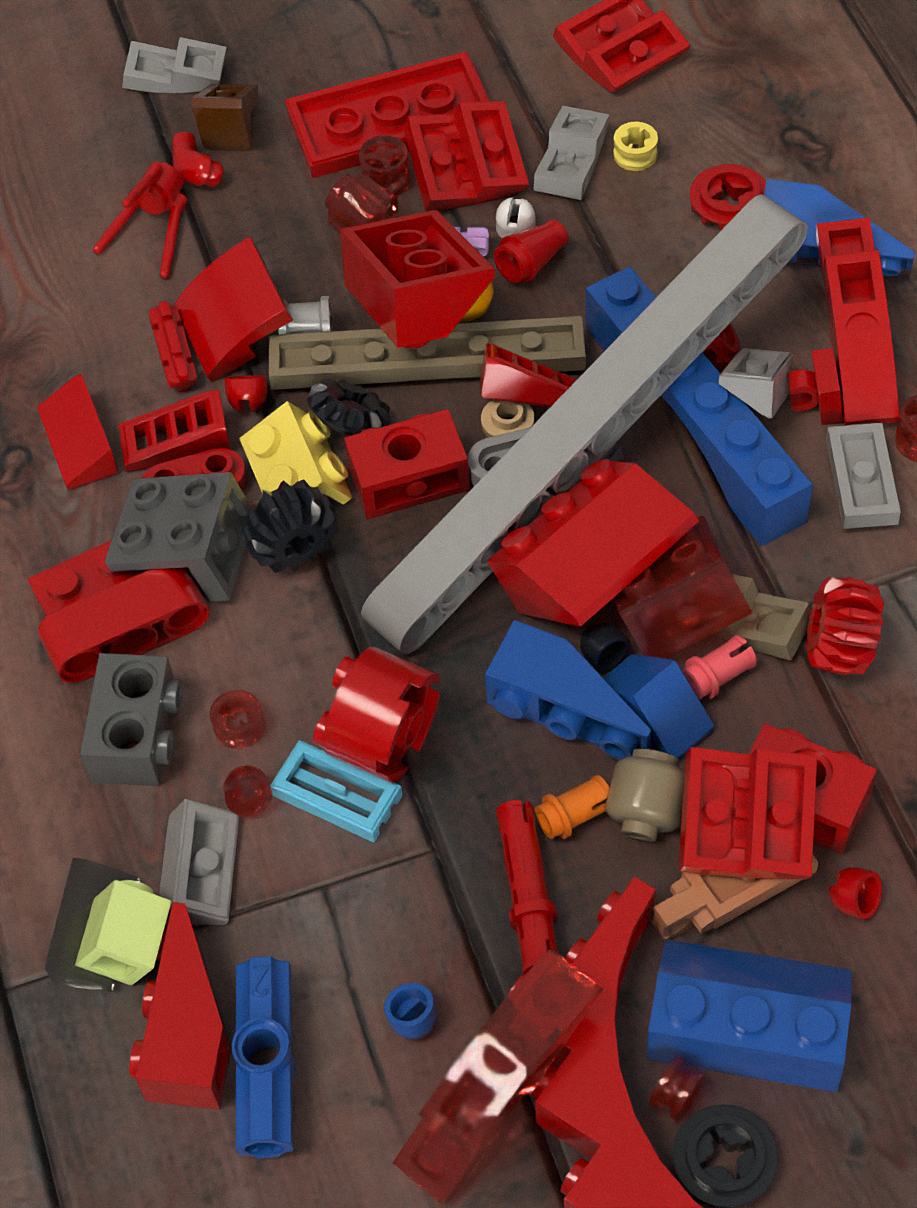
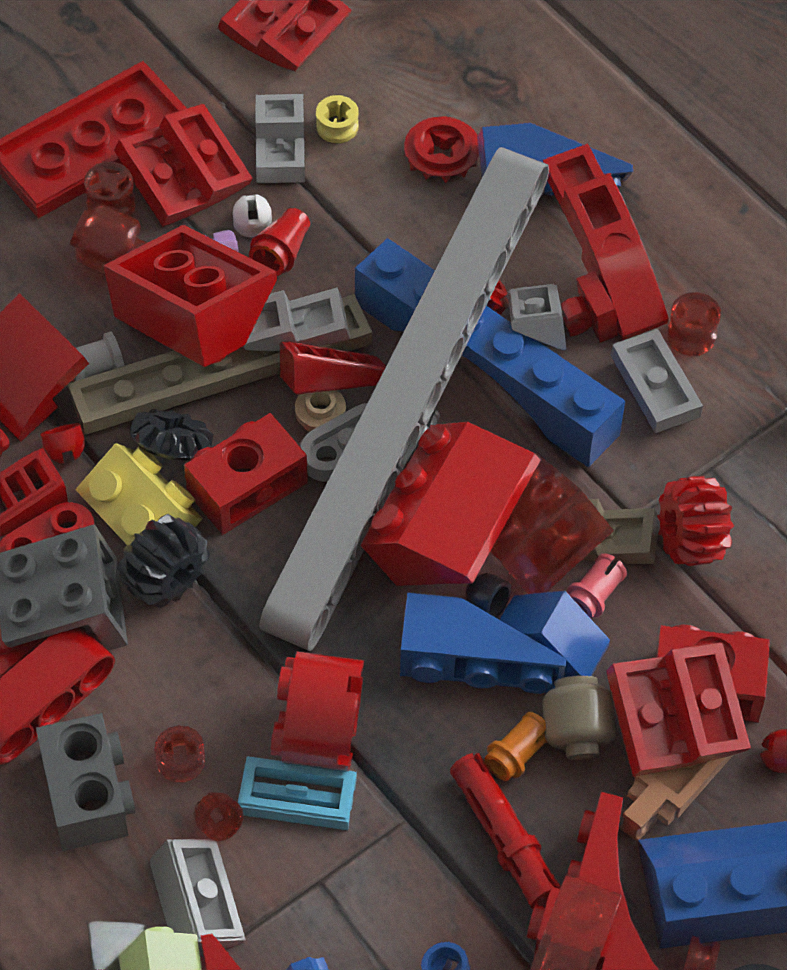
camera: 25 degrees left, 0 degrees up
(523, 329) = (306, 320): none -> light grey slope

